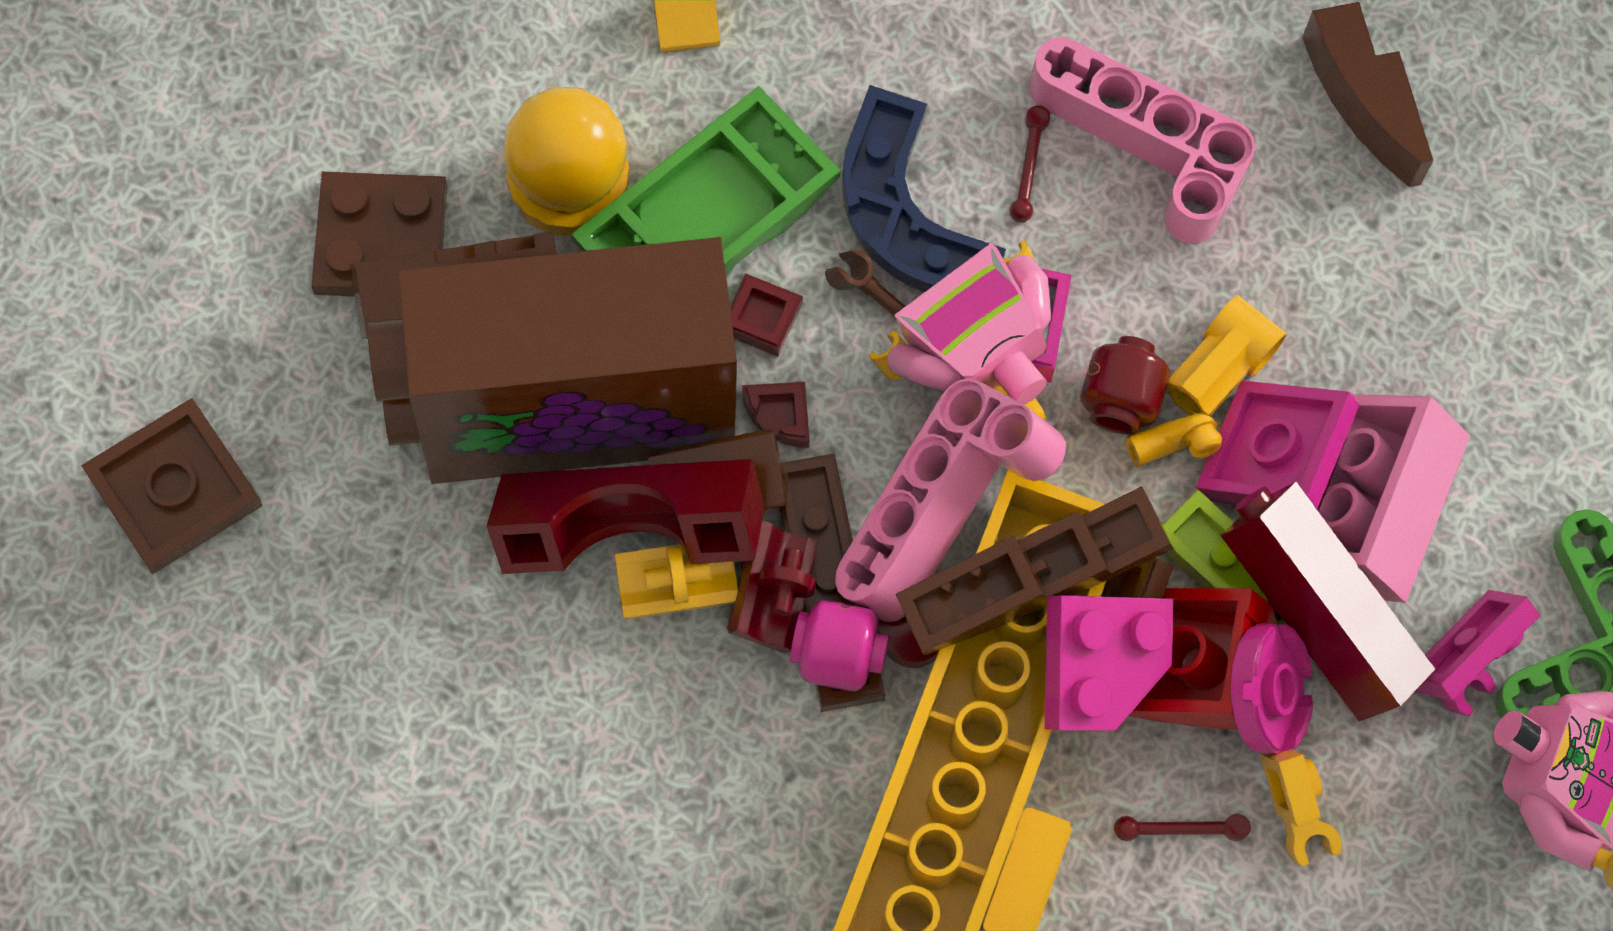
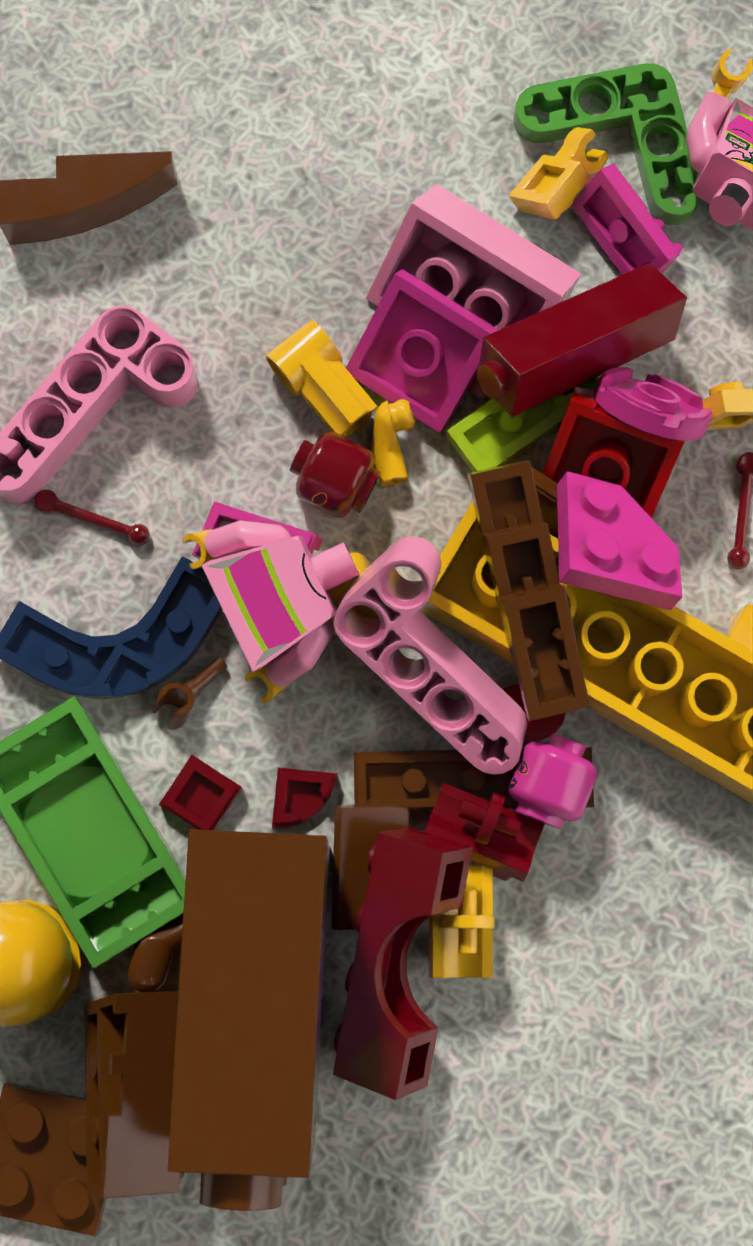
camera: 80 degrees left, 10 degrees up
(1512, 565) = (557, 179): none -> yellow plate

